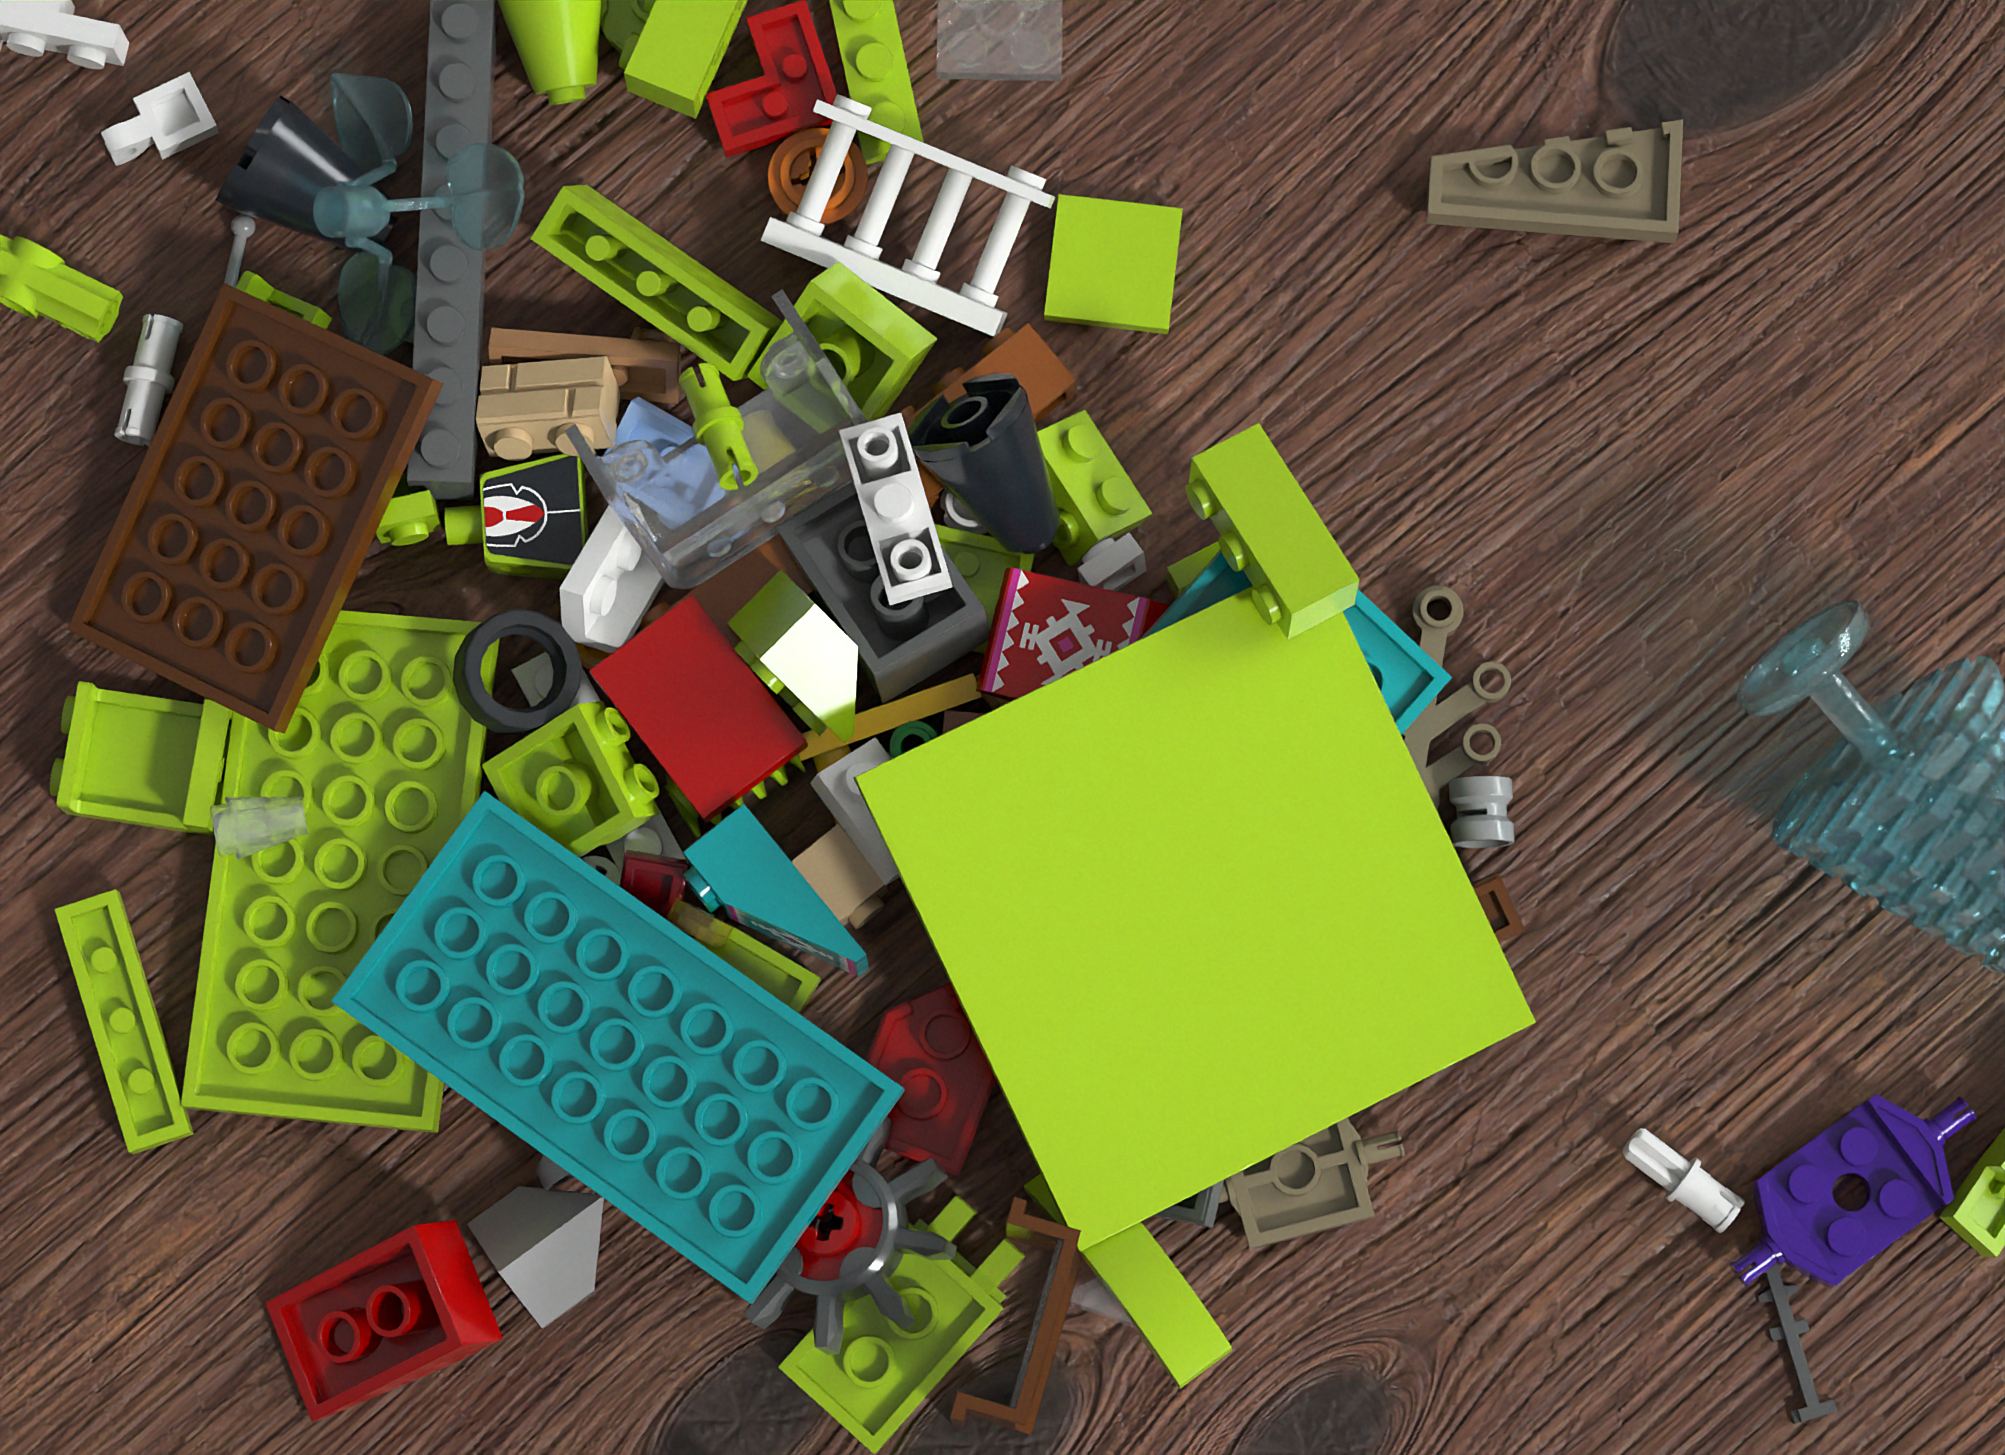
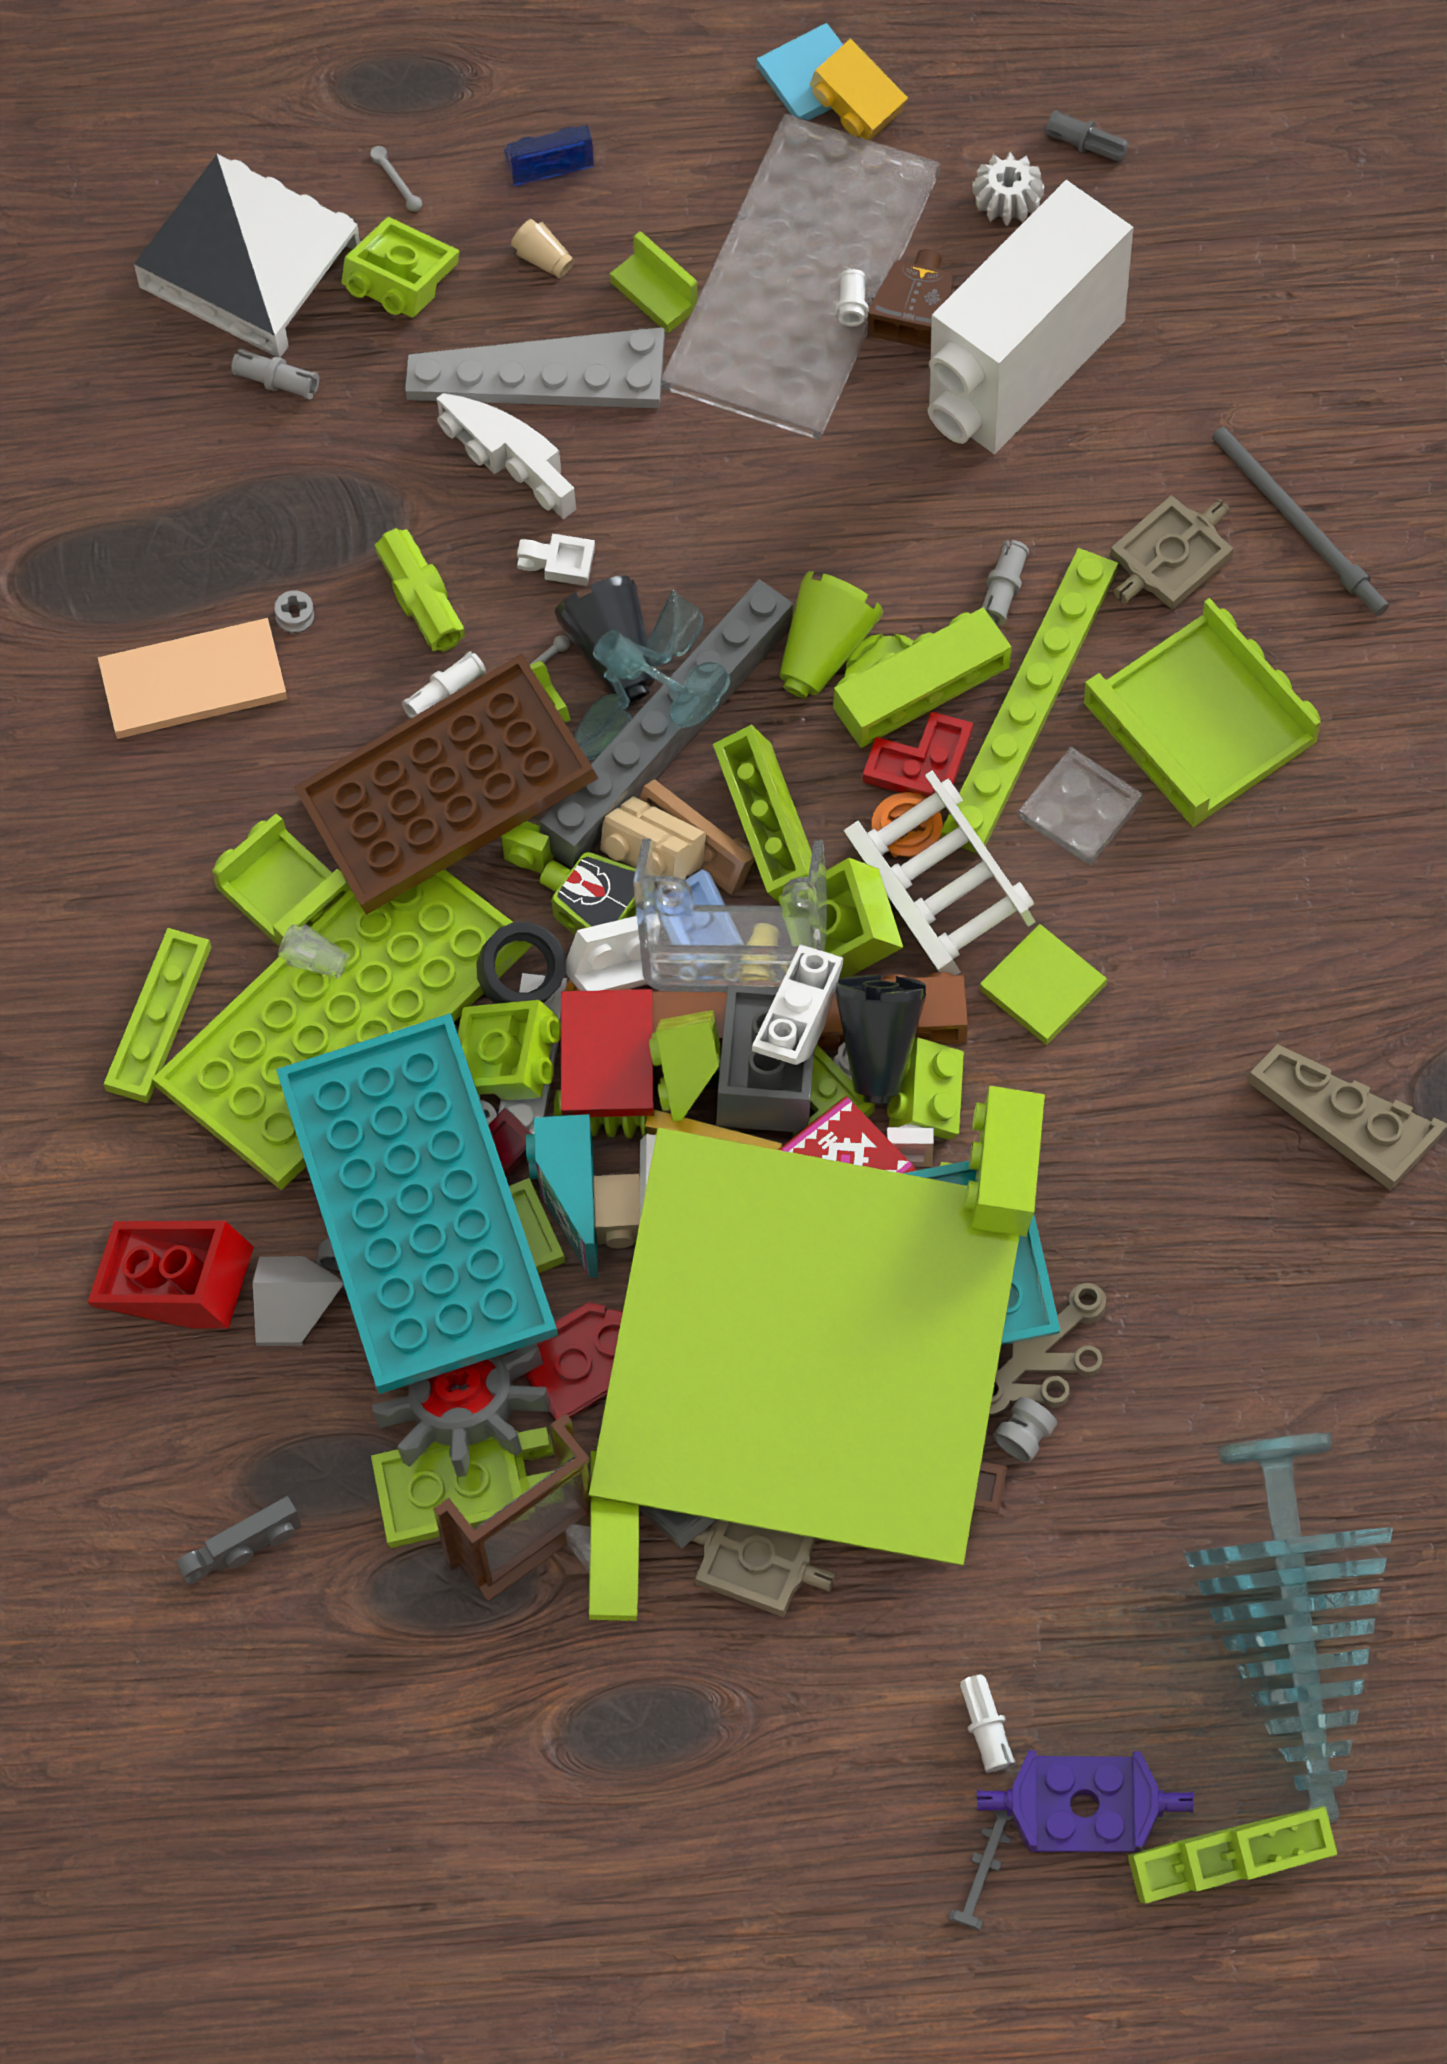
camera: 40 degrees right, 15 degrees down
(699, 923) = (517, 1174): clear yellow tile -> none
(718, 426) = (736, 904): lime pin -> none

